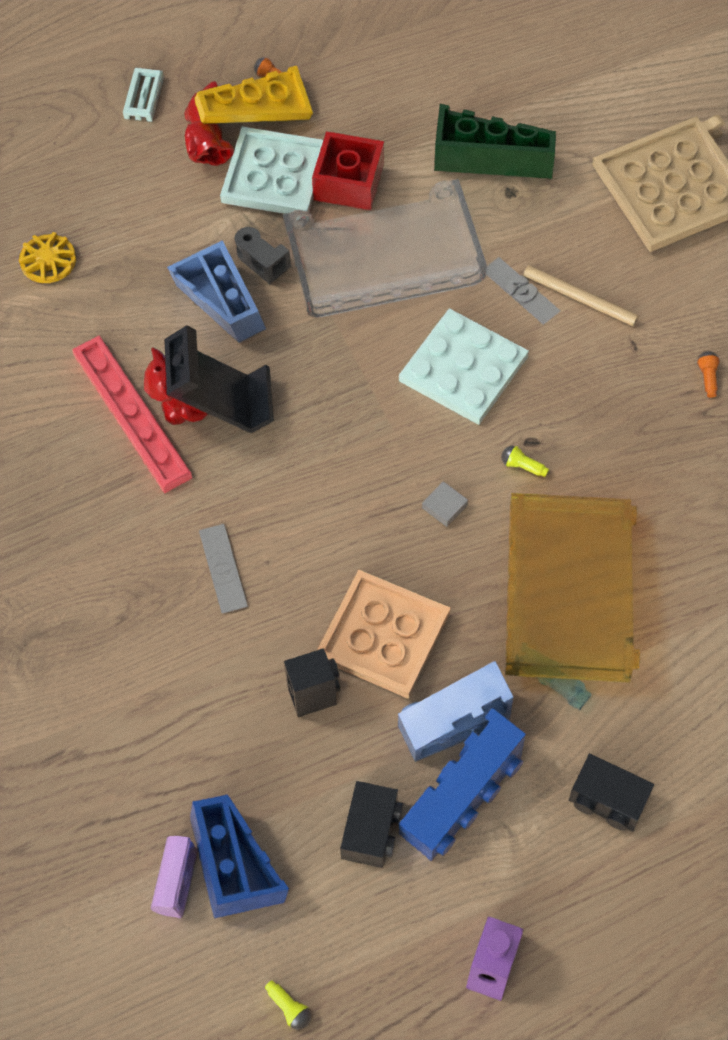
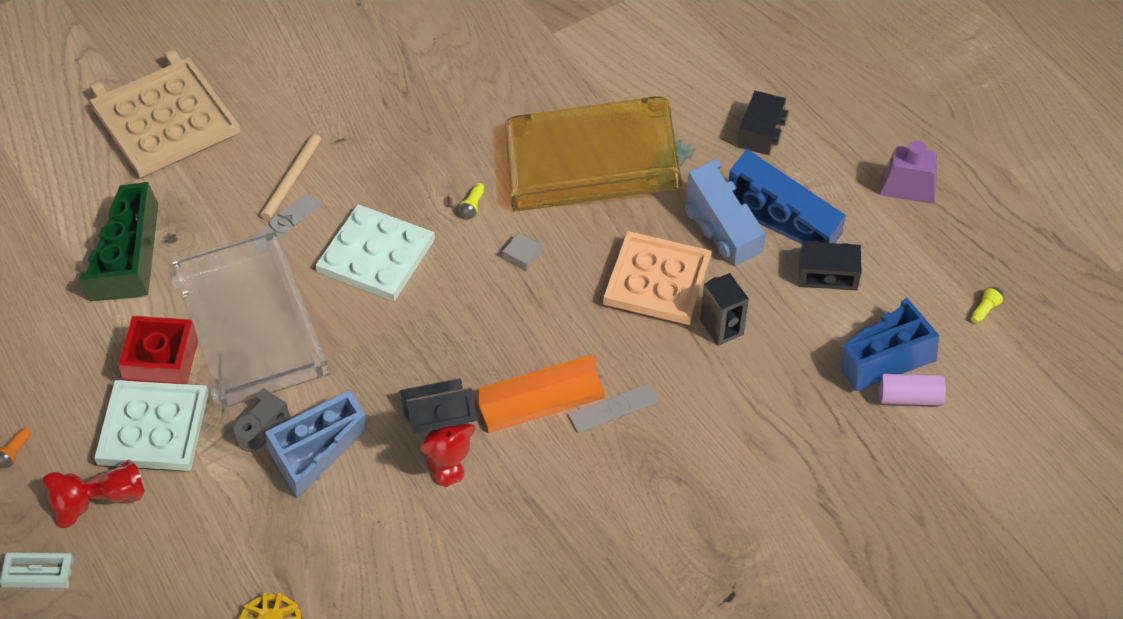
camera: 100 degrees left, 10 degrees down
(132, 414) = (456, 509): coral tile -> none
(243, 499) = (539, 393): none -> orange panel
(264, 99) = (64, 441): yellow wing -> none
(708, 363) = (358, 87): orange piece -> none

